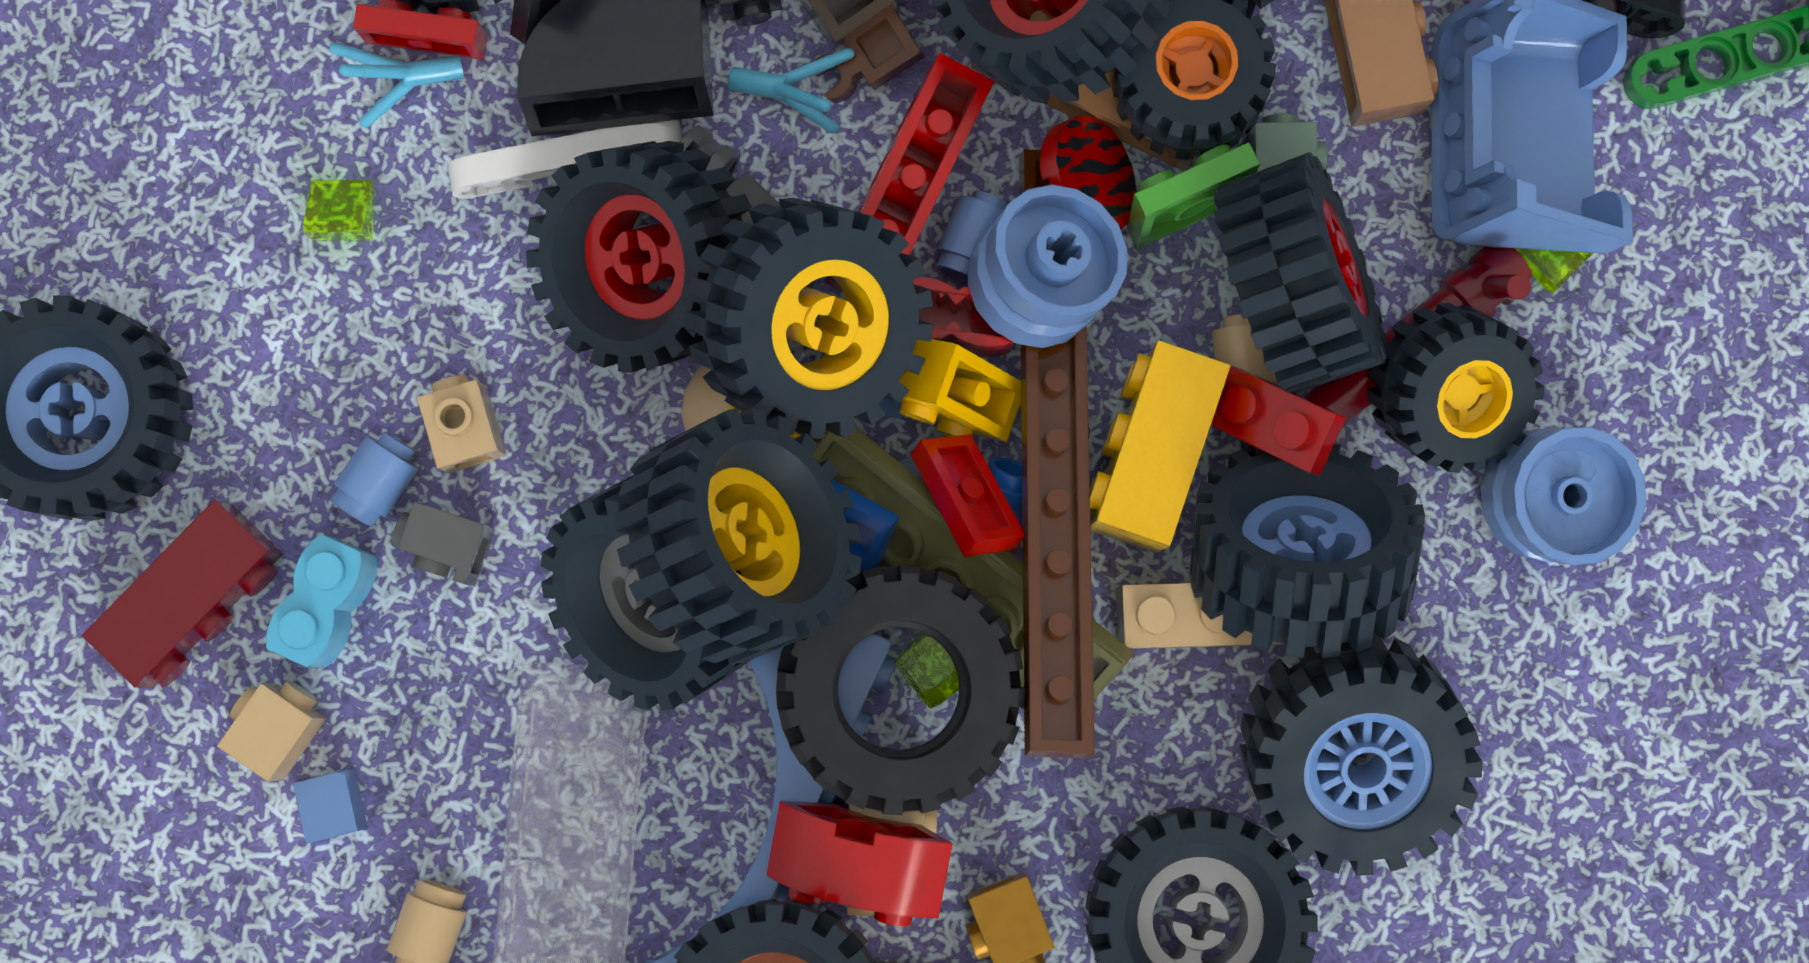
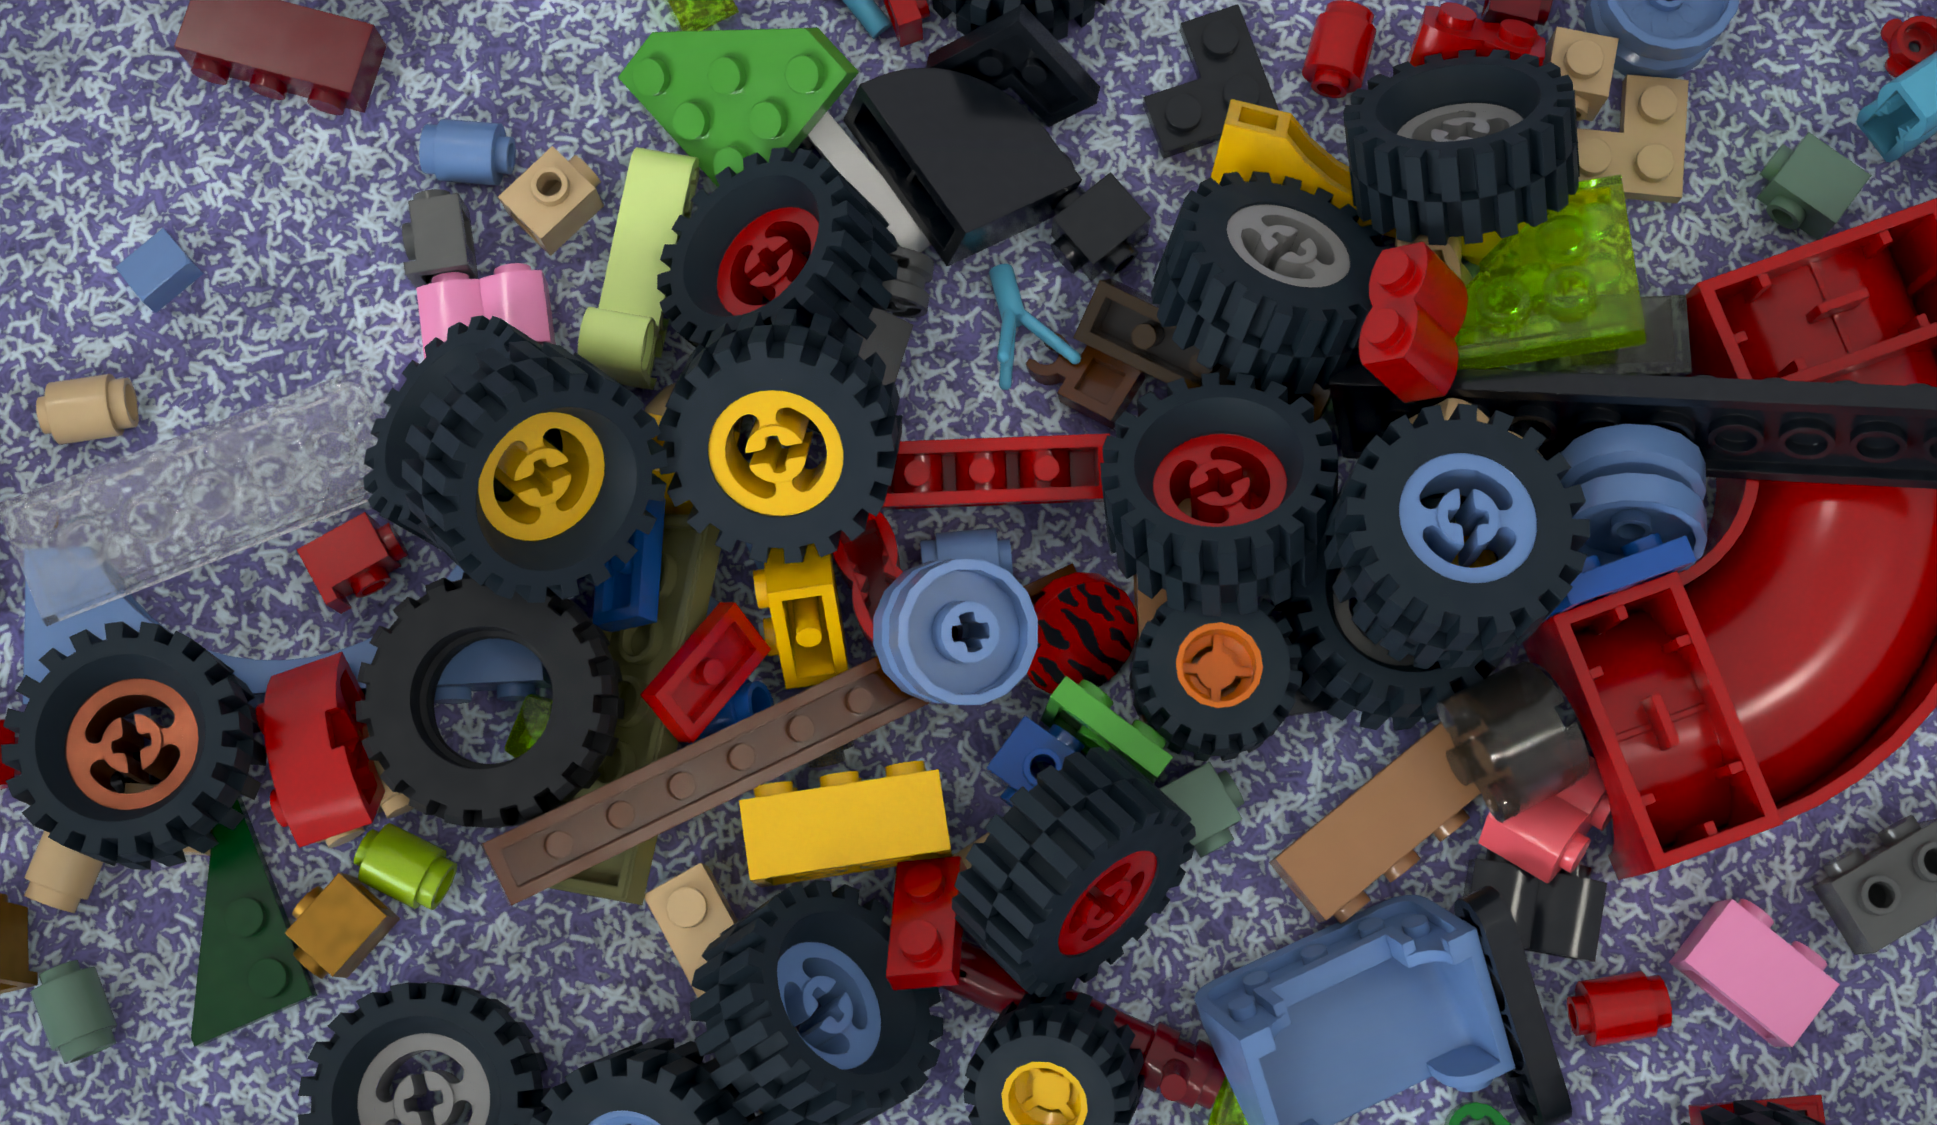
camera: 65 degrees right, 5 degrees down
(272, 728) = (198, 183): tan brick -> none
(317, 617) = (320, 167): medium azure brick -> none
(456, 213) = (737, 89): none -> bright green plate
(530, 509) = (511, 294): none -> bright pink brick
(568, 381) = (629, 323): none -> yellowish green beam
(693, 757) = (353, 560): none -> red brick
(987, 843) = (404, 867): none -> lime brick
(1169, 281) = (1025, 748): none -> blue brick

